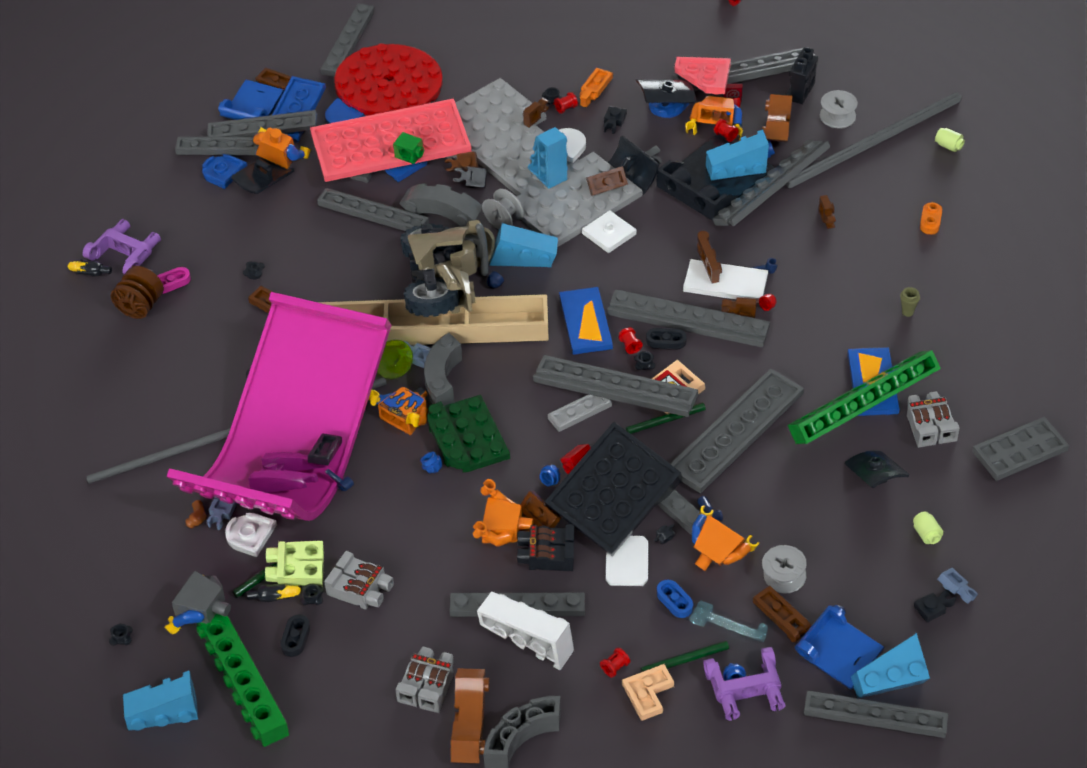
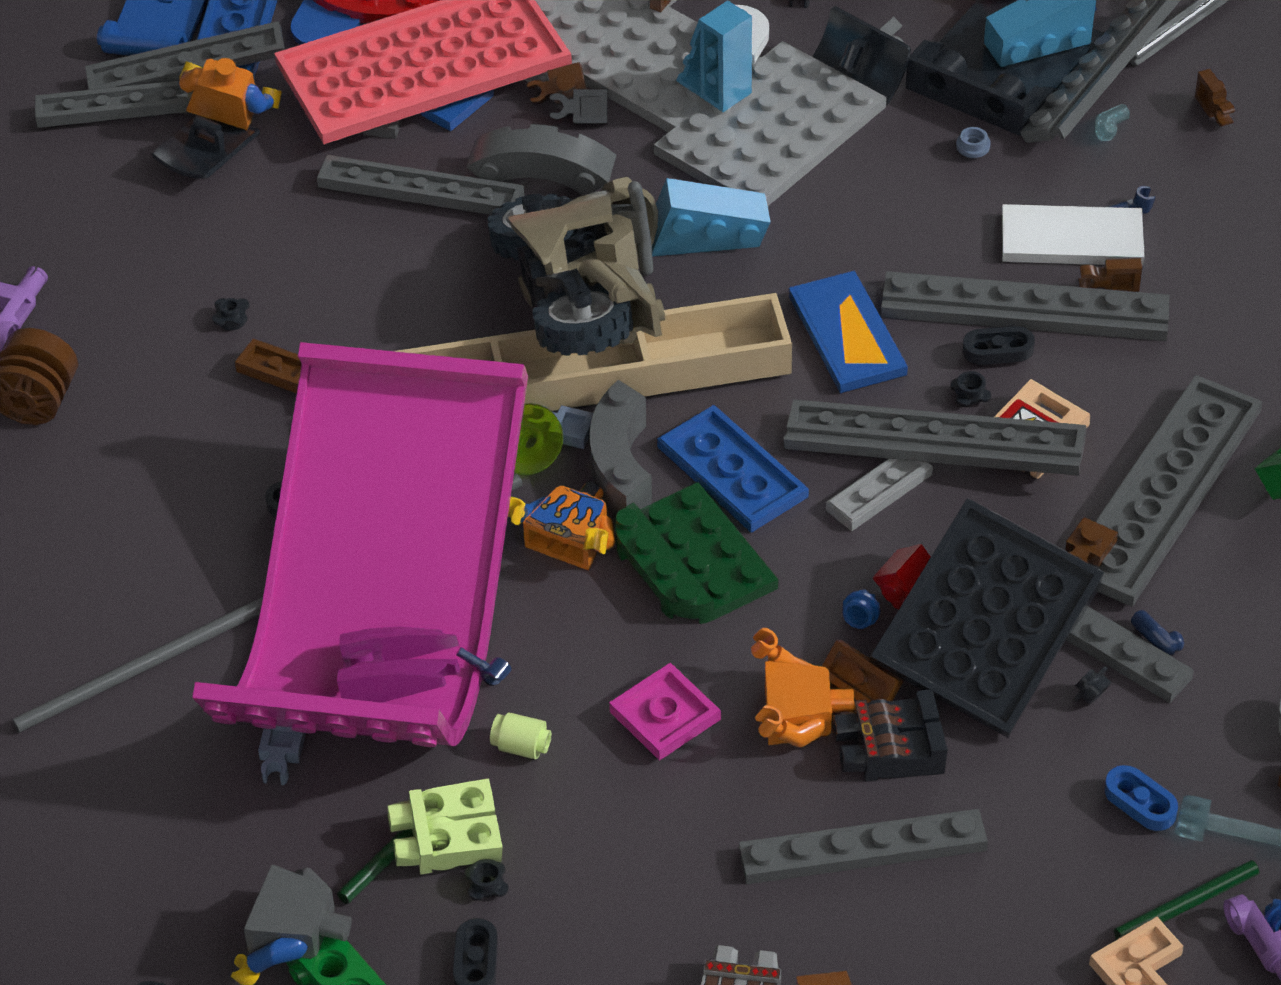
camera: 10 degrees left, 0 degrees up
(175, 278) = (93, 344): dark pink plate -> none
(198, 516) = (239, 765): dark orange arm -> none
(221, 168) = (128, 144): blue tile -> none
(249, 533) = (341, 783): white tile -> none
(273, 592) = (414, 885): black piece -> none
(324, 449) = (451, 613): black plate -> none
(348, 520) = (520, 735): none -> yellowish green brick
(358, 582) = (567, 845): light grey hips -> none
(408, 148) = (464, 68): green brick -> none
(429, 517) = (665, 711): none -> dark pink plate
(431, 462) = (642, 613): blue plate -> none
(495, 280) = (669, 279): dark blue hinge -> none
(502, 208) = (655, 154): light grey piece -> none
(502, 389) = (733, 468): none -> blue tile
(528, 628) = (900, 884): white wedge -> none
(606, 181) = (825, 87): reddish brown plate -> none
(609, 231) = (846, 174): white plate -> none
(615, 662) = (1067, 926): red bush -> none
(629, 563) = (1040, 747): white piece -> none
(631, 343) = (937, 356): red bush -> none
(662, 419) = (1034, 484): dark green bar -> none
(683, 455) = (1091, 541): none -> reddish brown plate
(684, 222) = (973, 142): none -> sand blue plate
(708, 257) = (1036, 197): reddish brown plate -> none
(717, 542) = (1191, 686): orange torso -> none
(763, 218) = (1106, 122): none -> clear light blue arm
(767, 302) = (1156, 262): red hinge -> none

